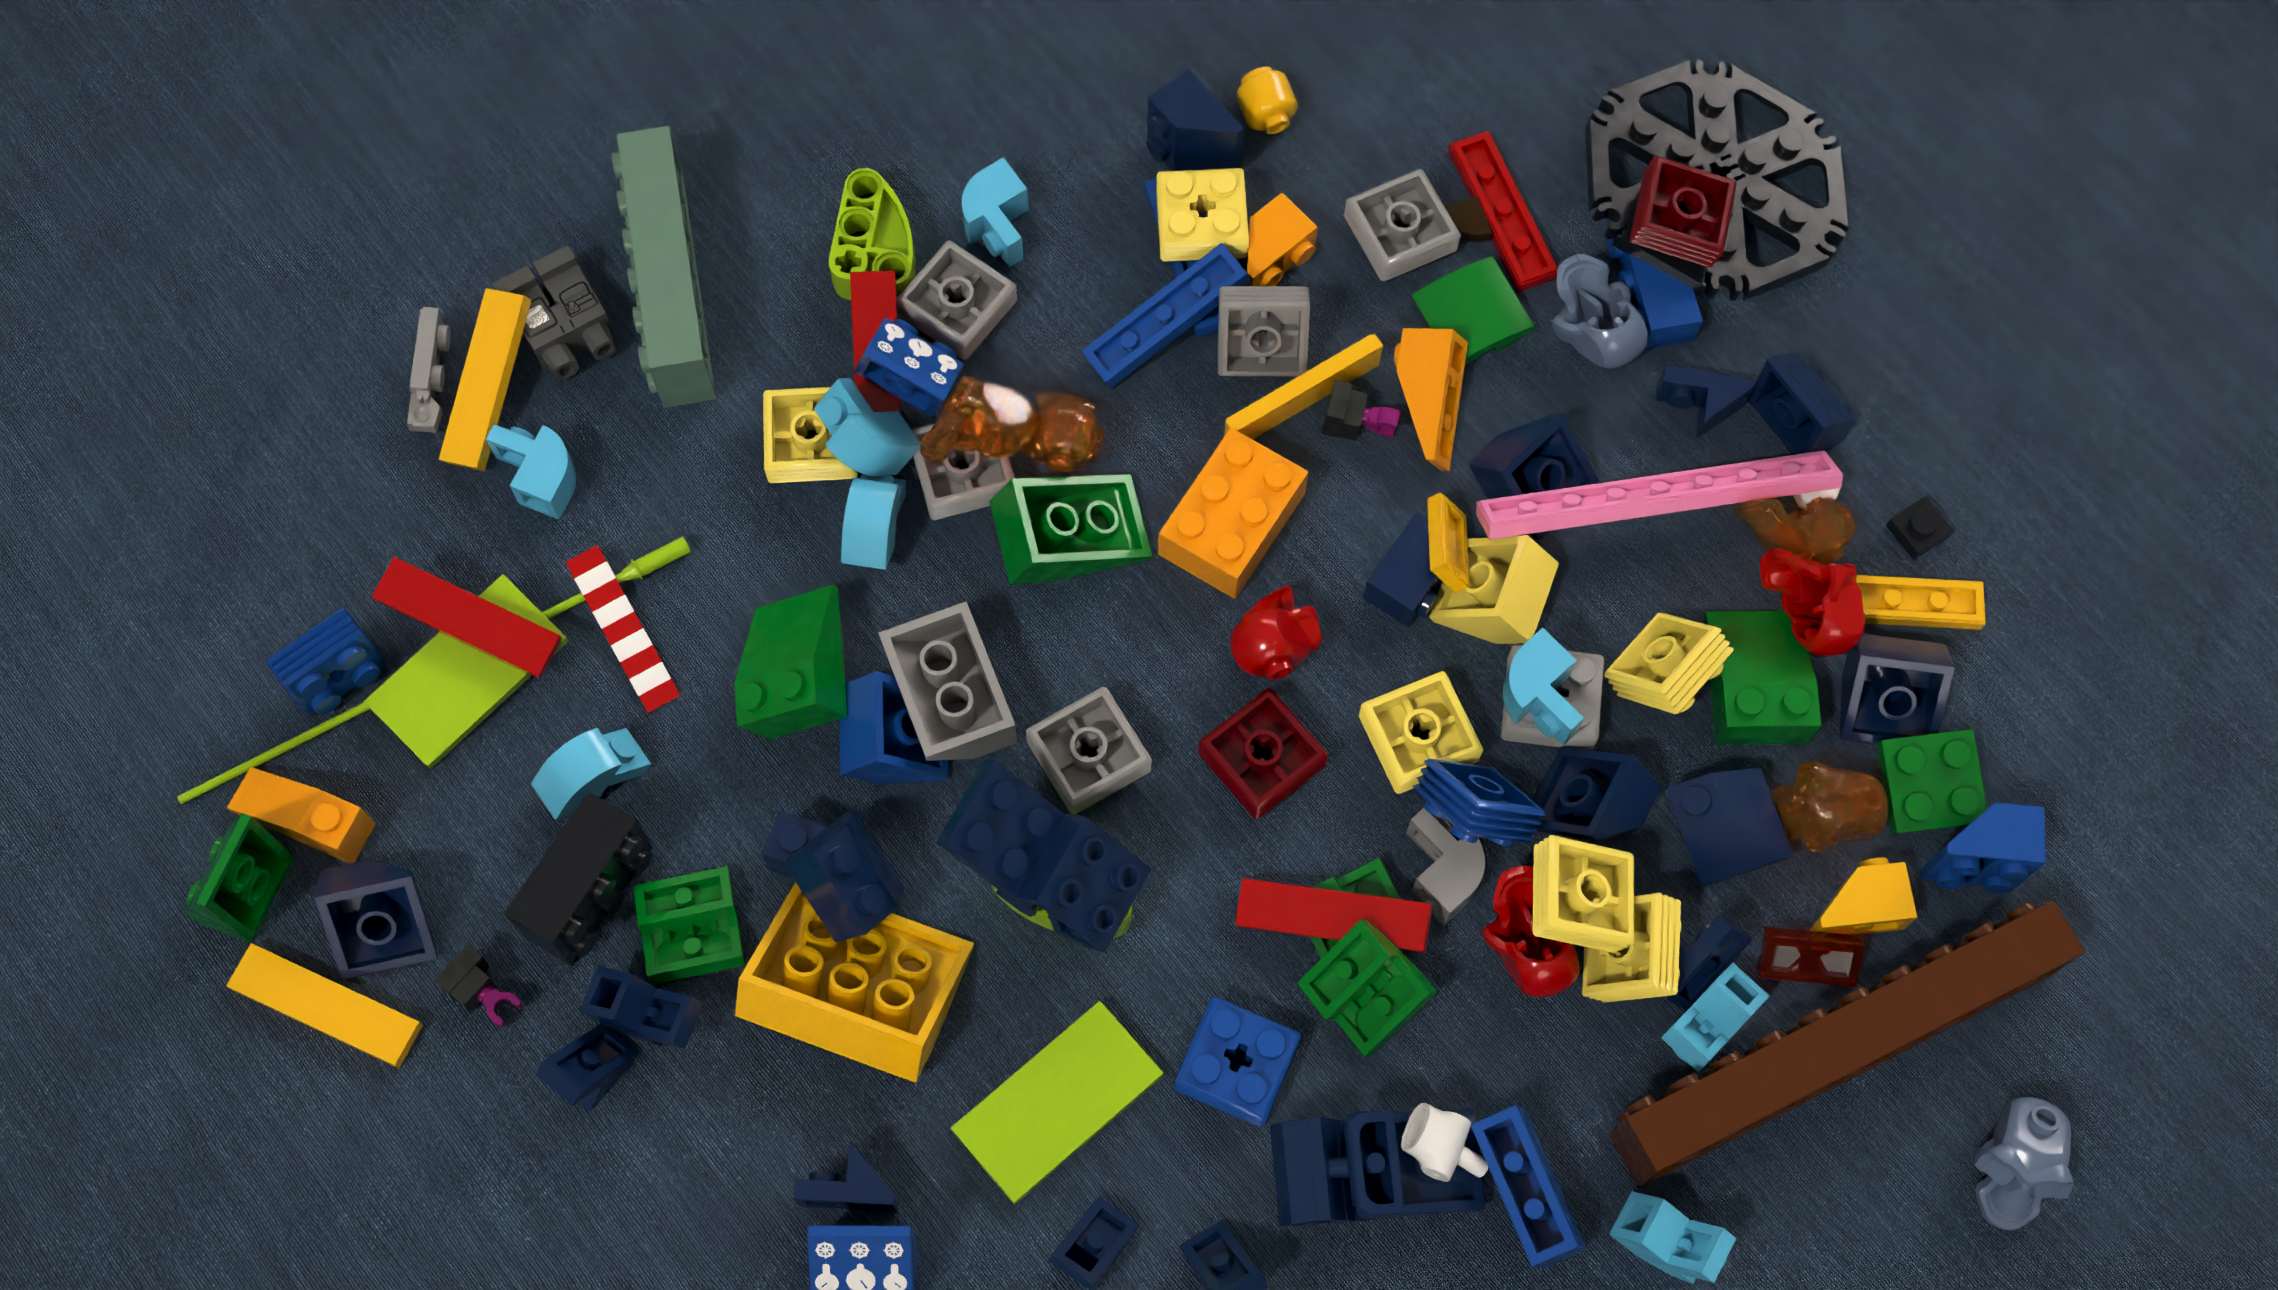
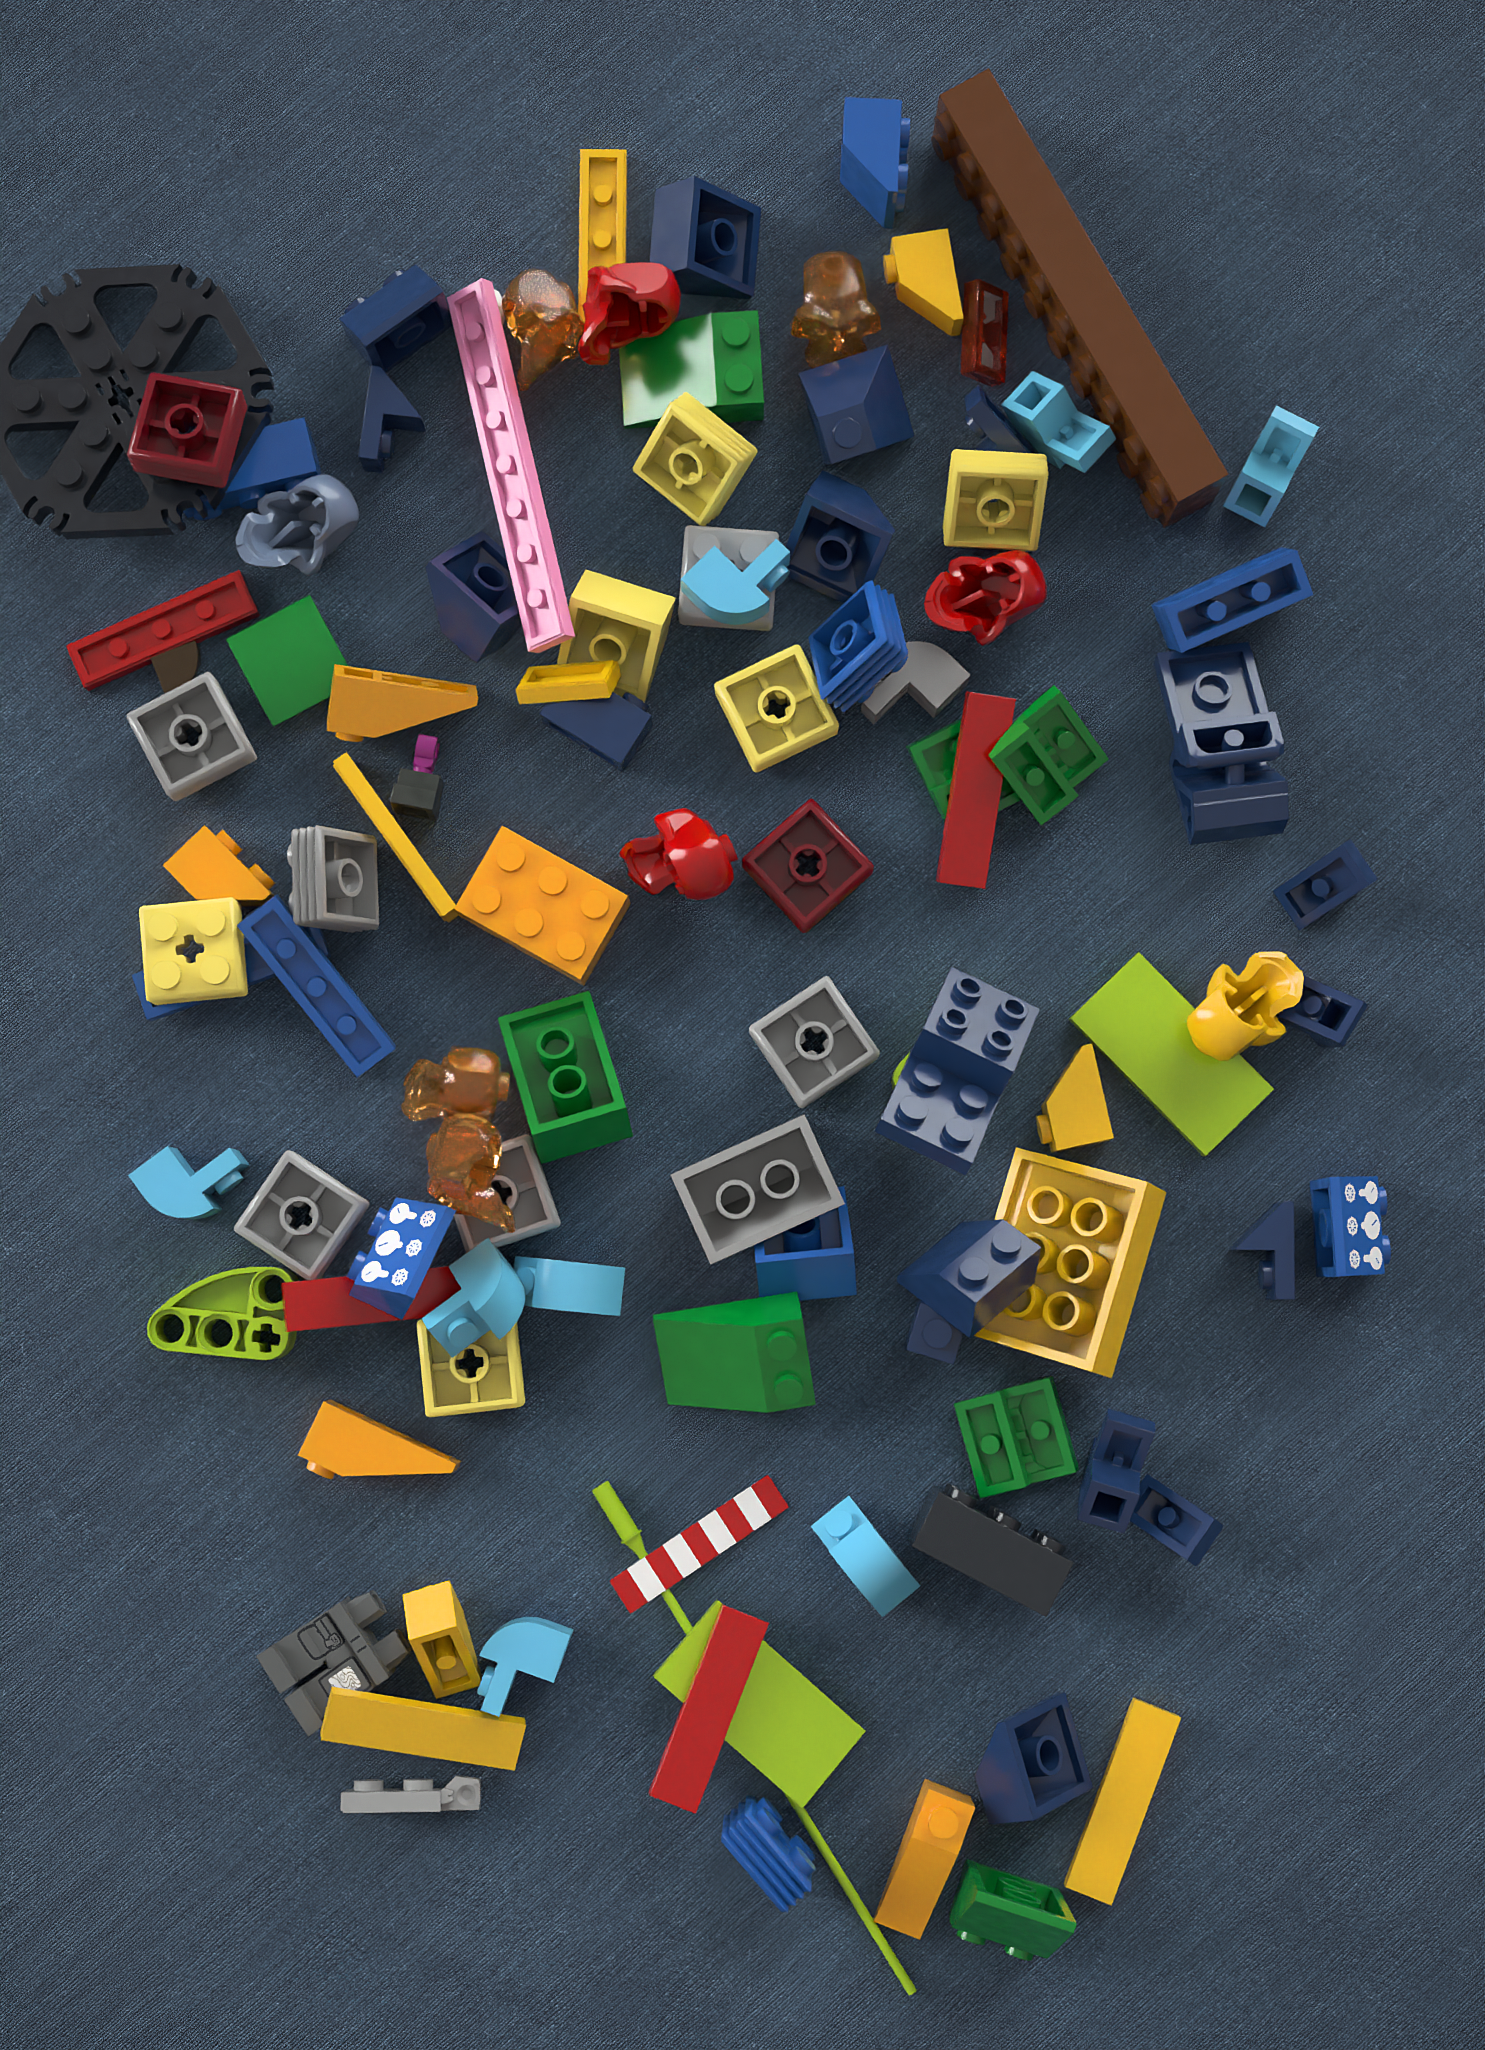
camera: 90 degrees left, 15 degrees up
(470, 986) = (1093, 1652): pearl dark grey piece -> none
(565, 399) = (441, 1639): none -> yellow slope
(663, 268) = (277, 1542): sand green brick -> none
(746, 340) = (359, 1446): none -> light orange slope
(1010, 998) = (1076, 1106): none -> yellow slope
(1098, 1168) = (1244, 1006): none -> yellow head
(1192, 127) = (86, 965): dark blue slope -> none
(1252, 1089) = (1094, 893): blue brick -> none
(1266, 100) = (38, 888): yellow head -> none
(1438, 1143) = (1202, 682): white piece -> none
(1583, 894) = (958, 541): light yellow brick -> none
(1919, 528) = (521, 209): black plate -> none
(1931, 781) = (797, 209): green plate -> none
(2024, 1163) = (1171, 144): sand blue head -> none

